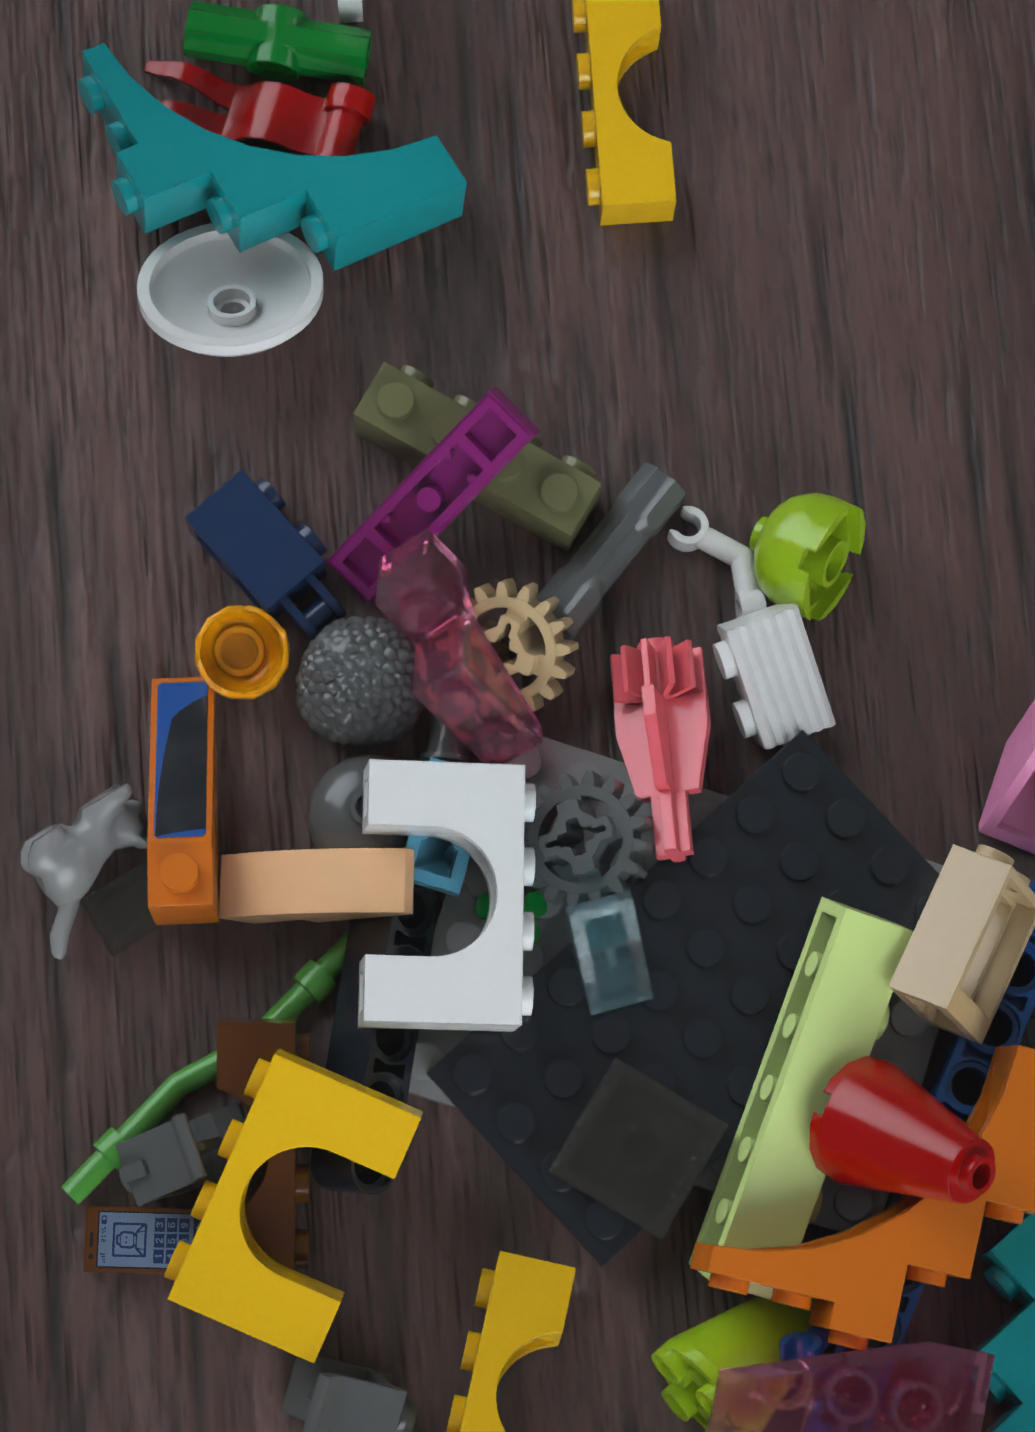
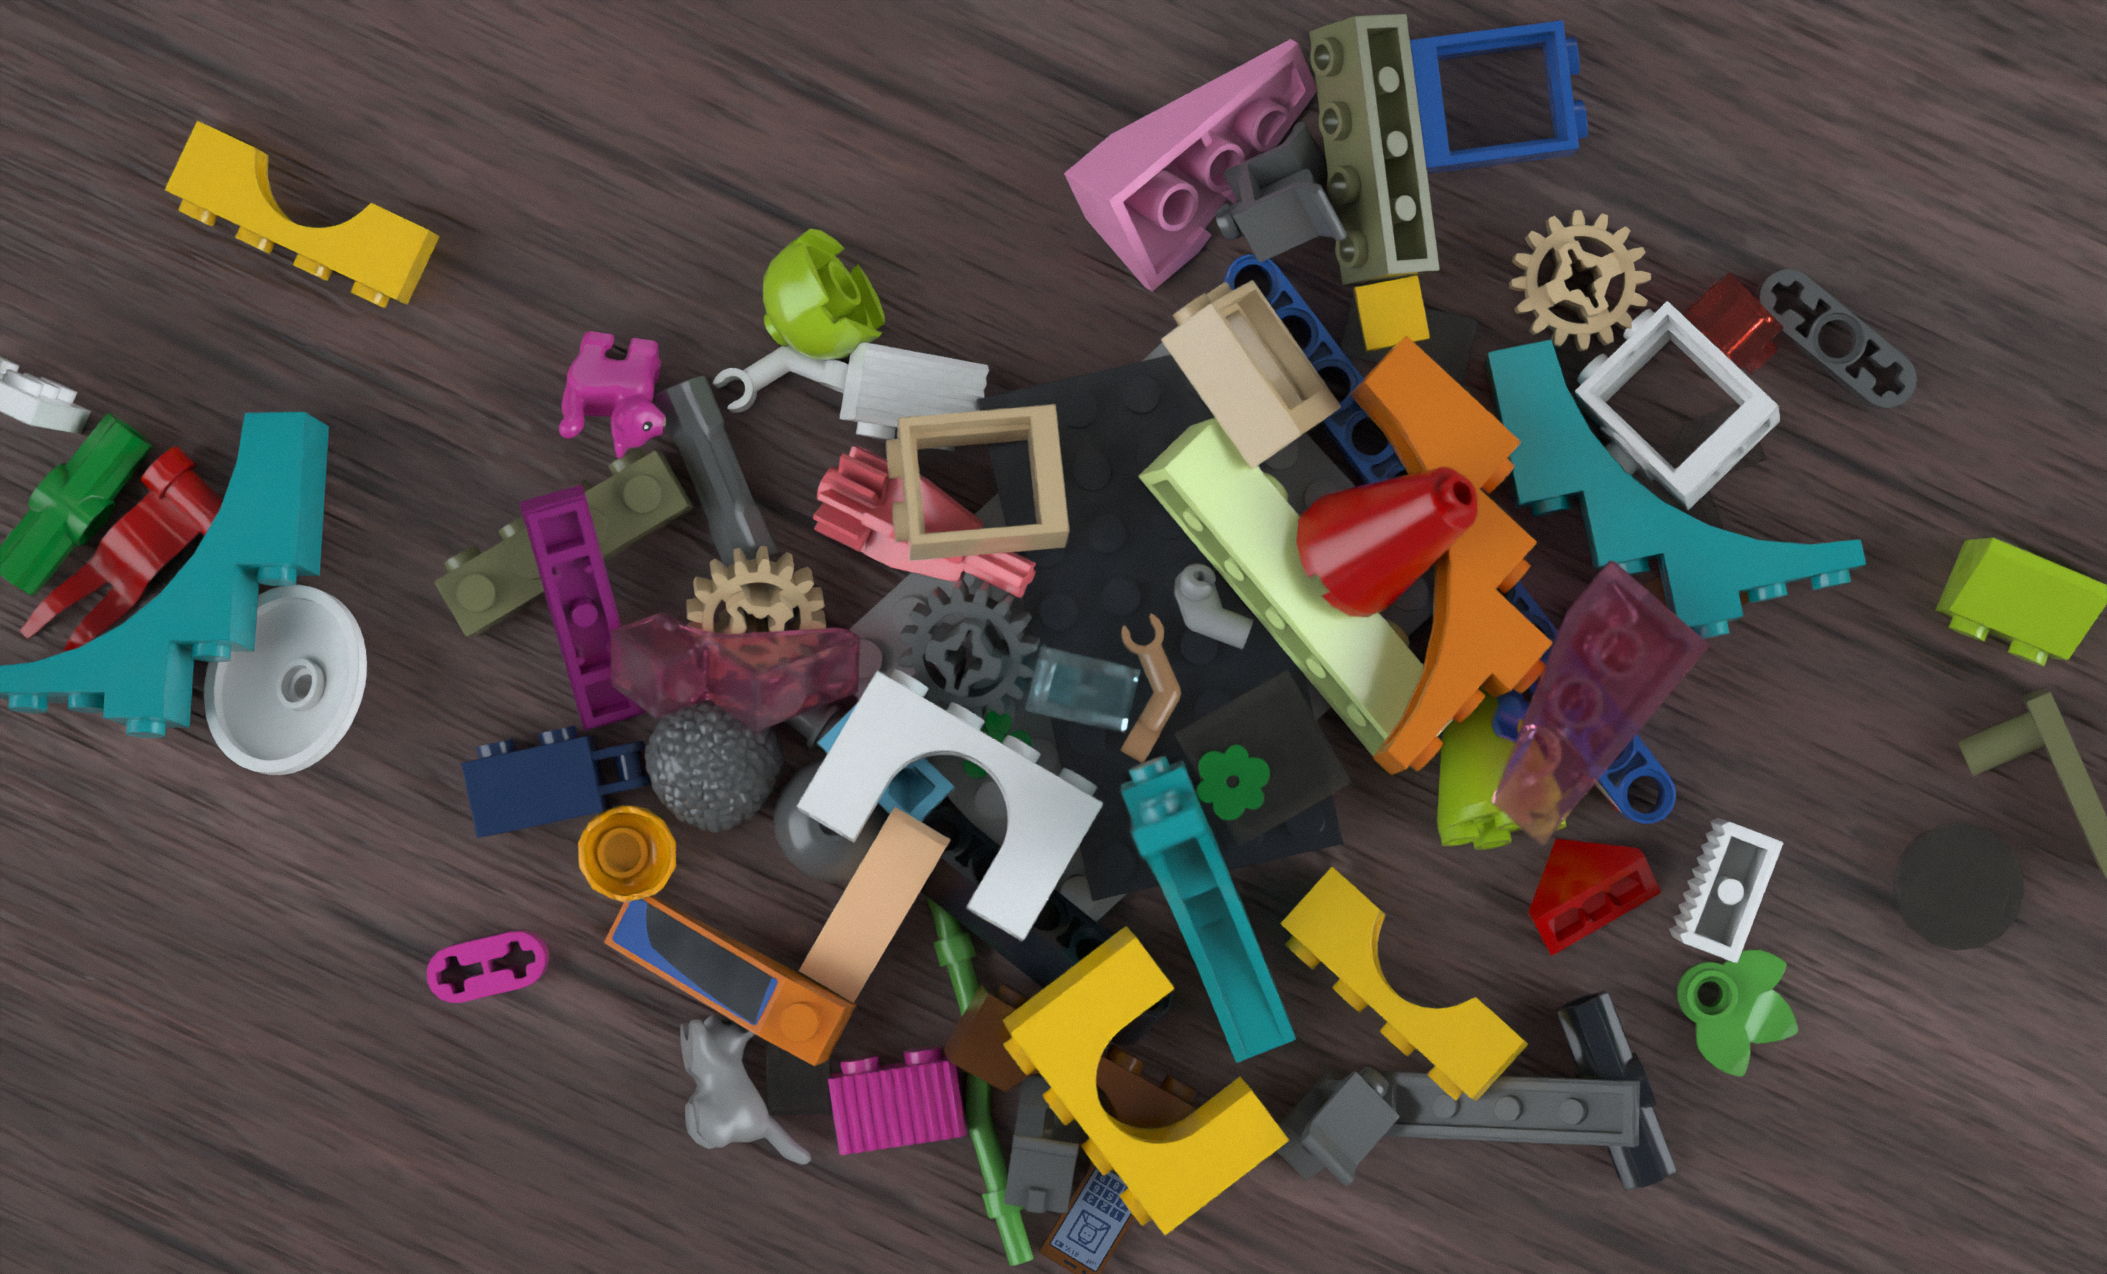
camera: 60 degrees left, 10 degrees up
(87, 582) = (492, 980): none -> dark pink beam
(152, 1006) = (897, 1101): none -> dark pink brick
(470, 1187) = (1206, 906): none -> teal arch
(605, 1110) = (1231, 801): none -> green plant
(630, 425) = (614, 389): none -> dark pink animal
(638, 1032) = (1163, 699): none -> medium nougat arm
(738, 1021) = (1203, 609): none -> light grey arm
(779, 734) = (1033, 424): none -> tan window

